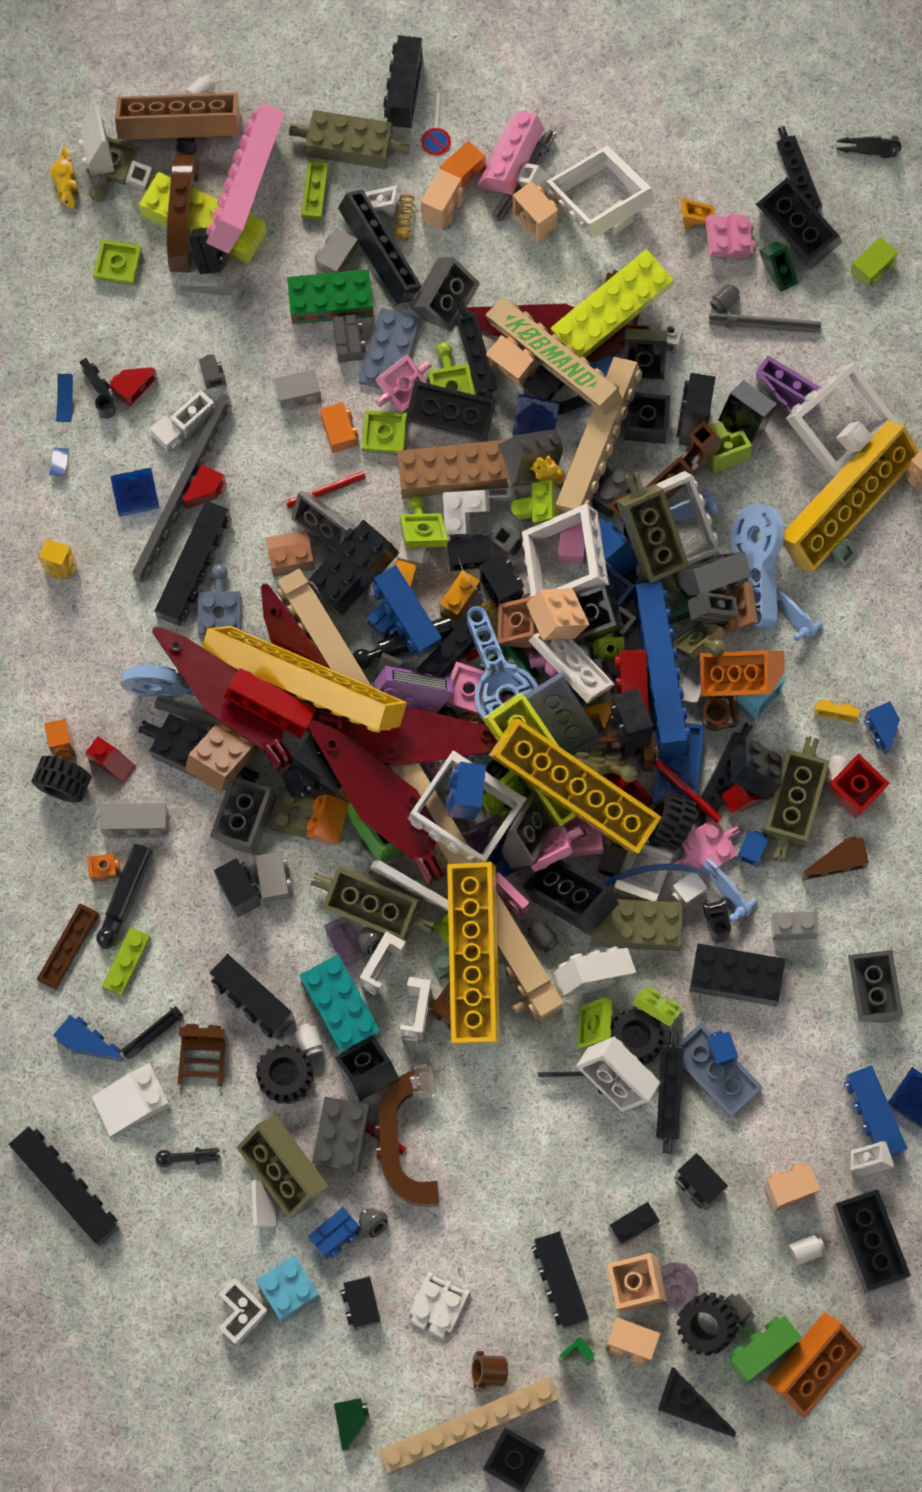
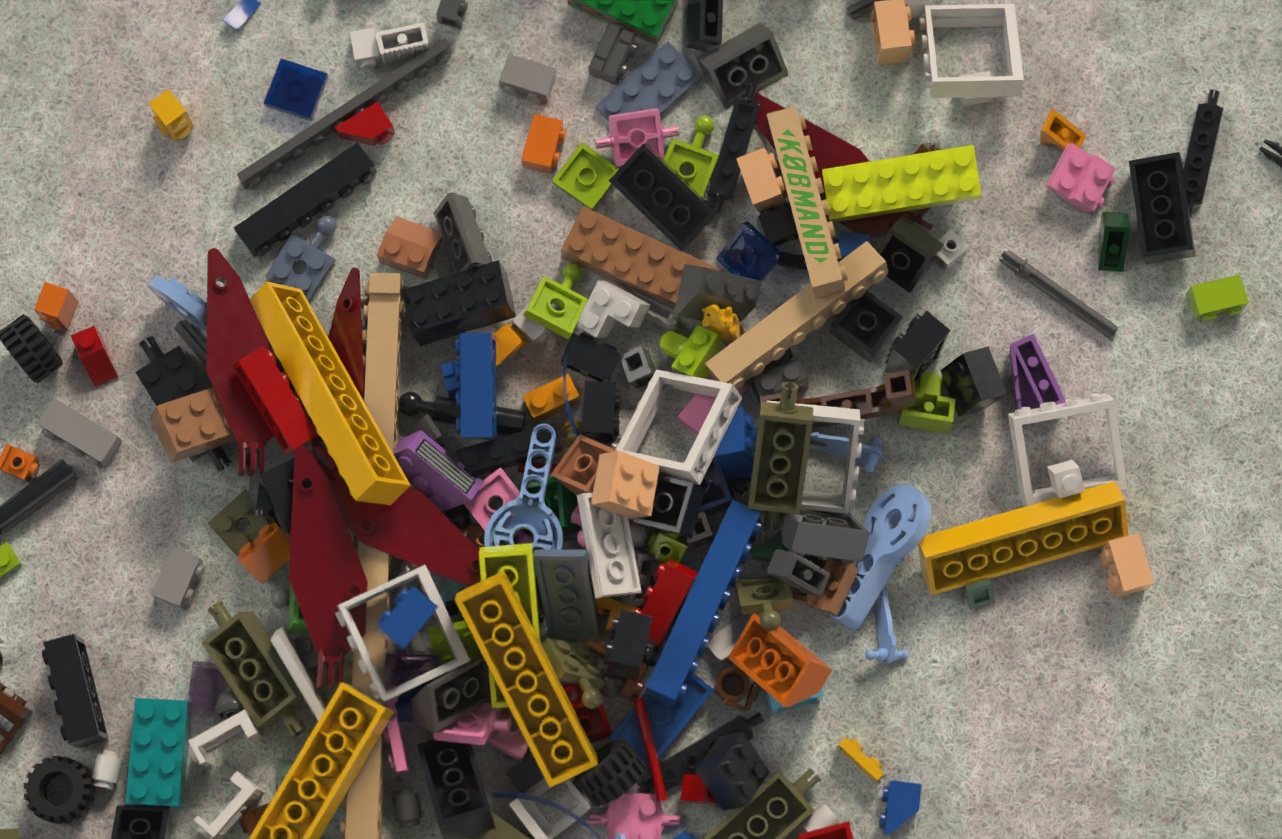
camera: 30 degrees right, 5 degrees up
(237, 888) = (133, 568): black brick -> none
(243, 815) = (187, 497): dark grey slope -> none
(331, 487) = (497, 202): red bar -> none
(725, 298) = (1033, 243): dark grey brick -> none

